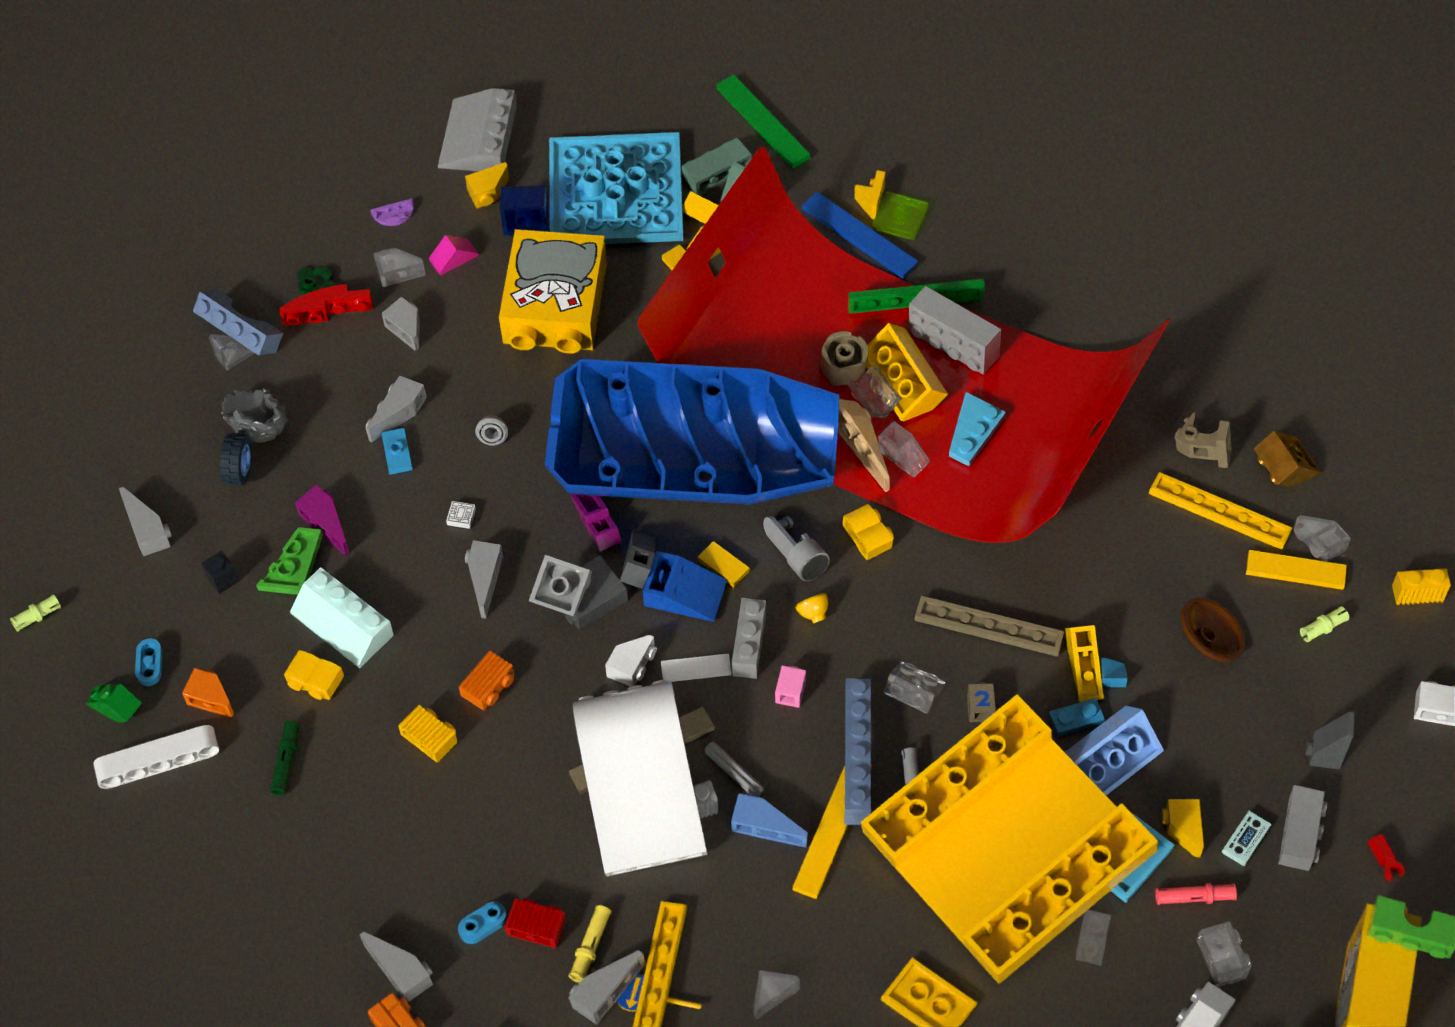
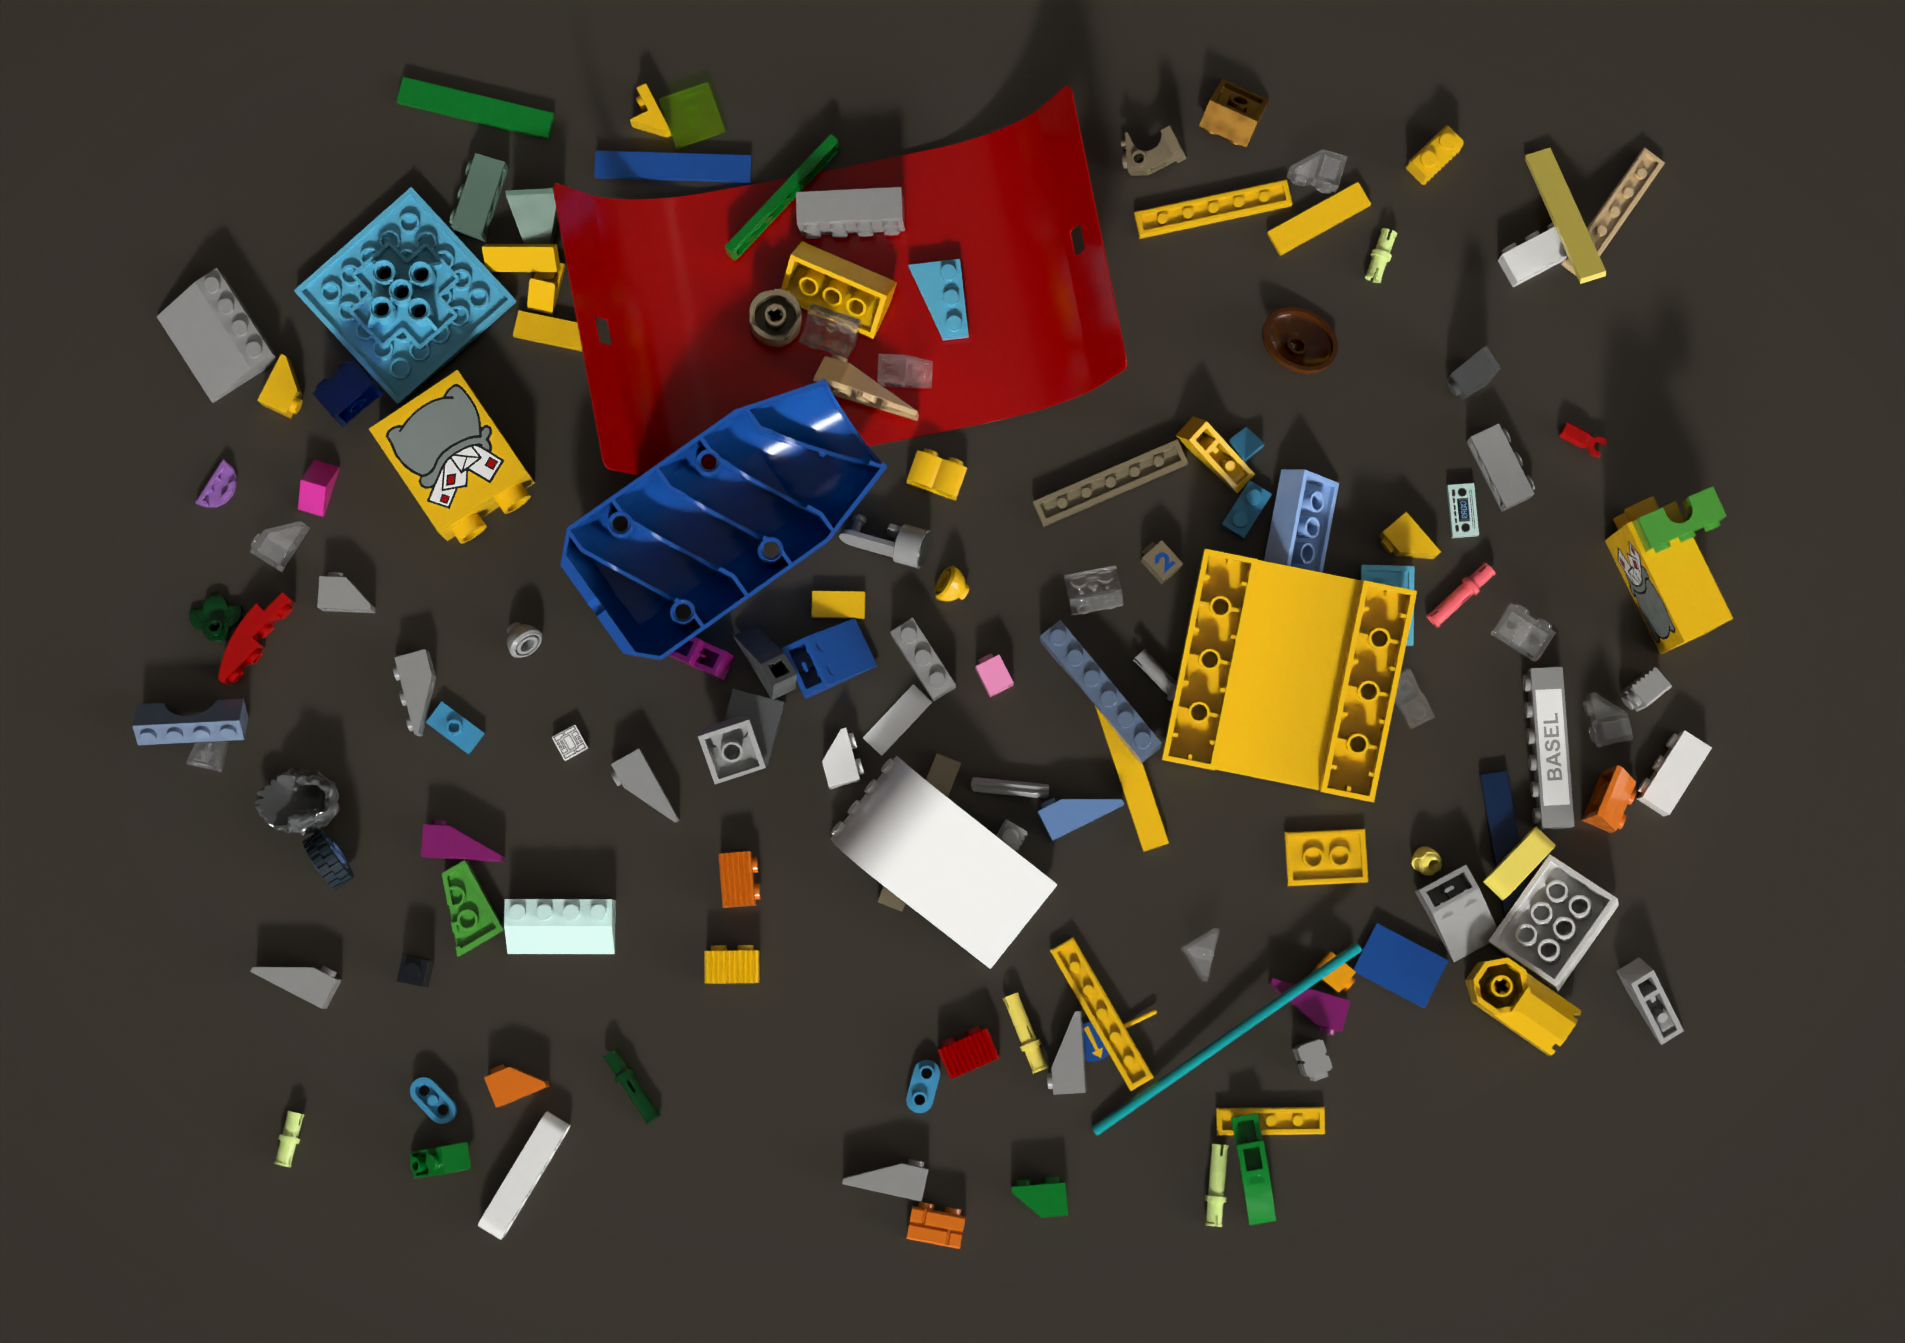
camera: 40 degrees left, 25 degrees up
(313, 675) = (587, 995): yellow brick -> none

